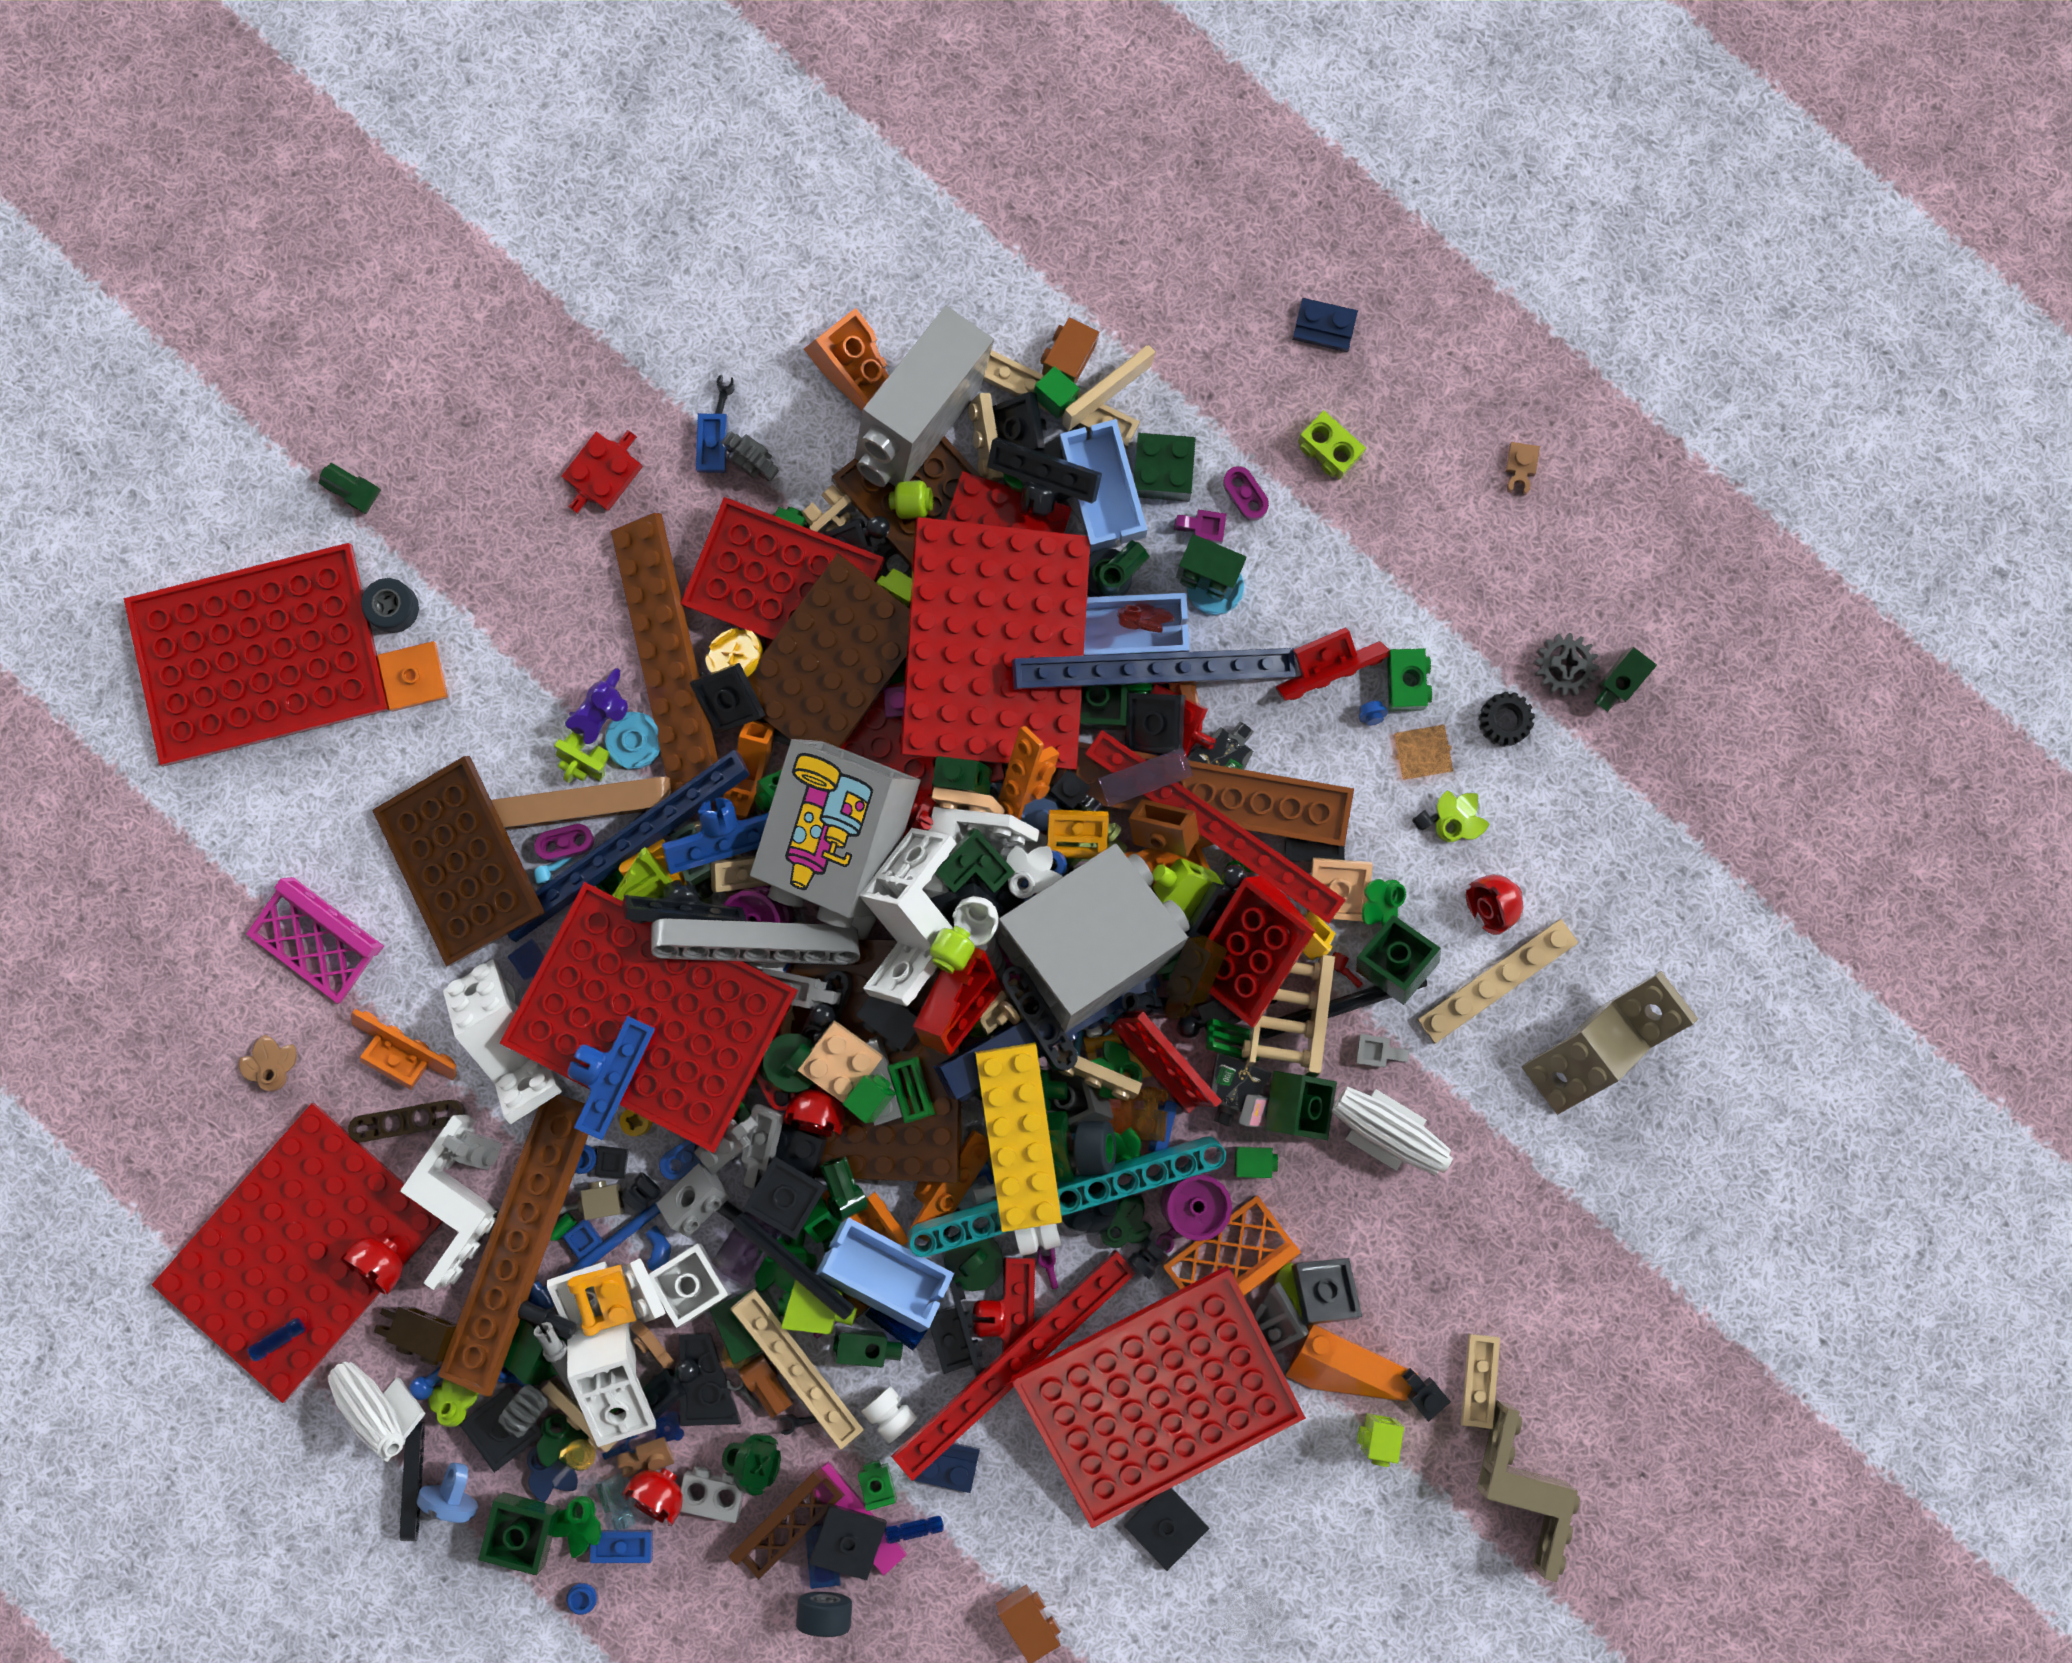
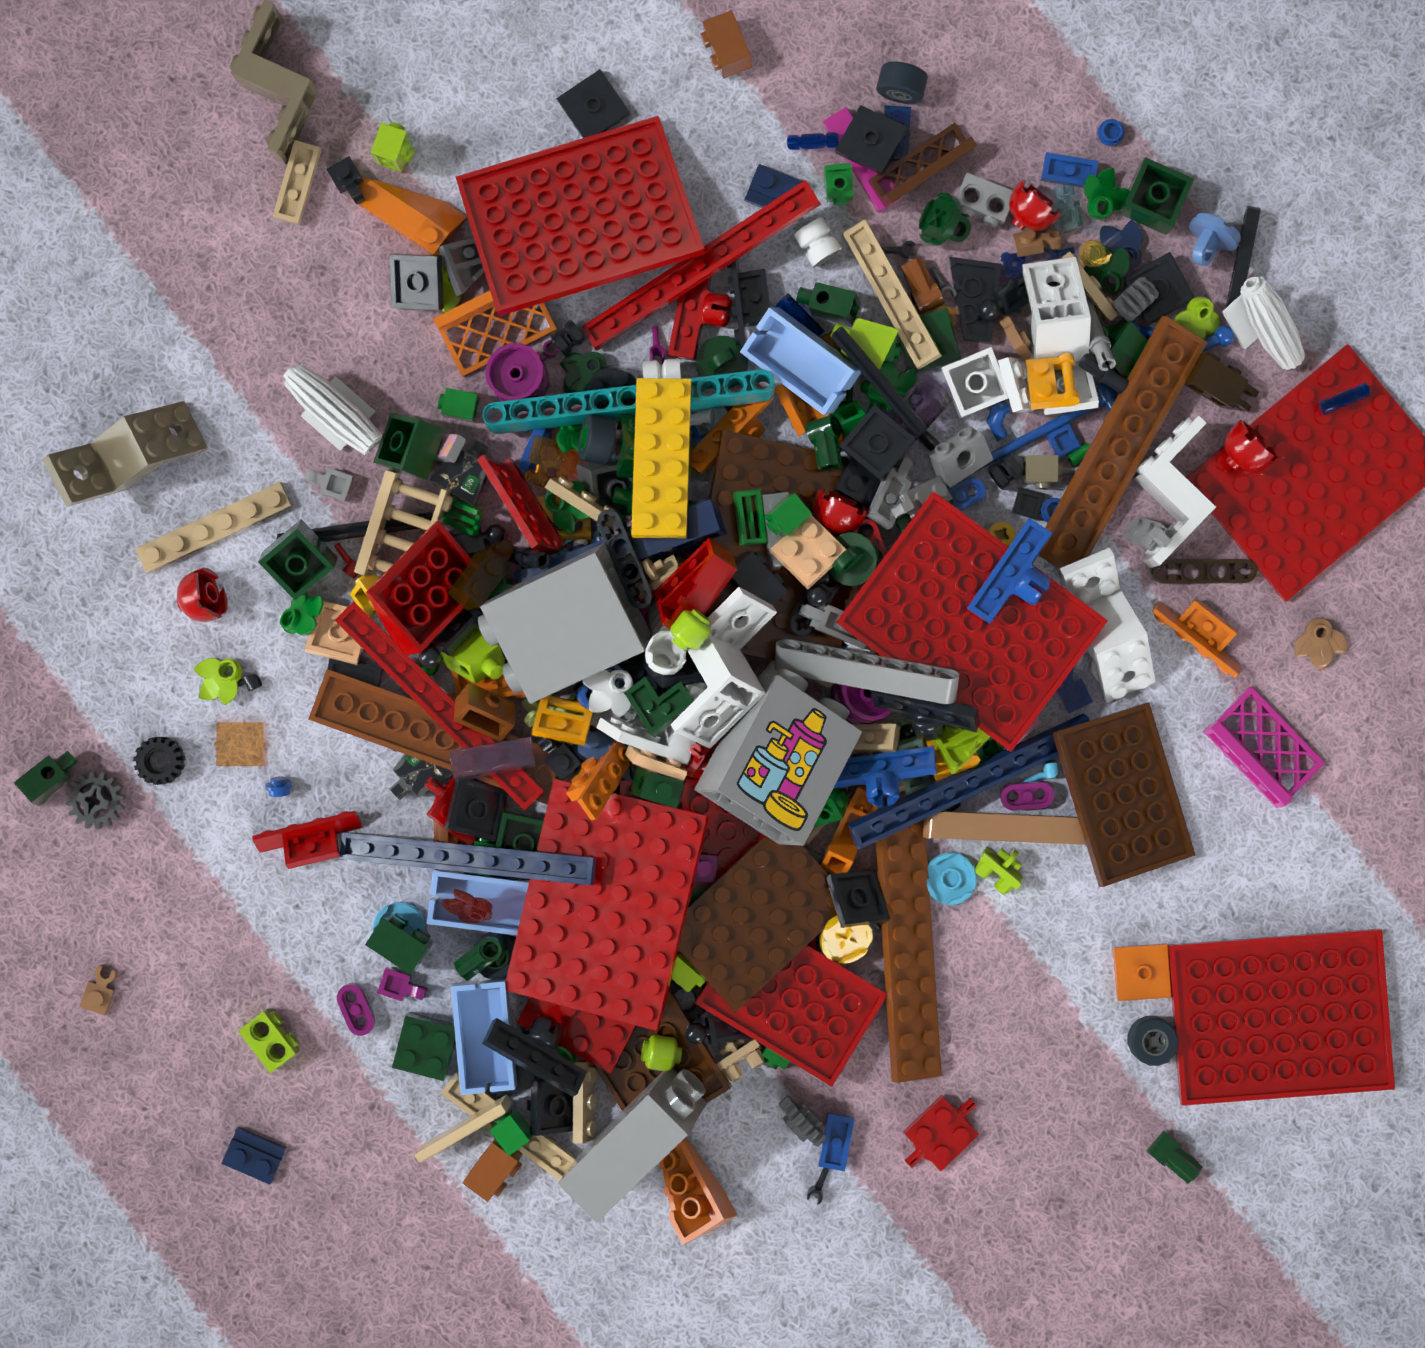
camera: 175 degrees left, 5 degrees up
(601, 704) = (974, 914): dark purple animal -> none
(1399, 694) = (251, 799): green brick -> none

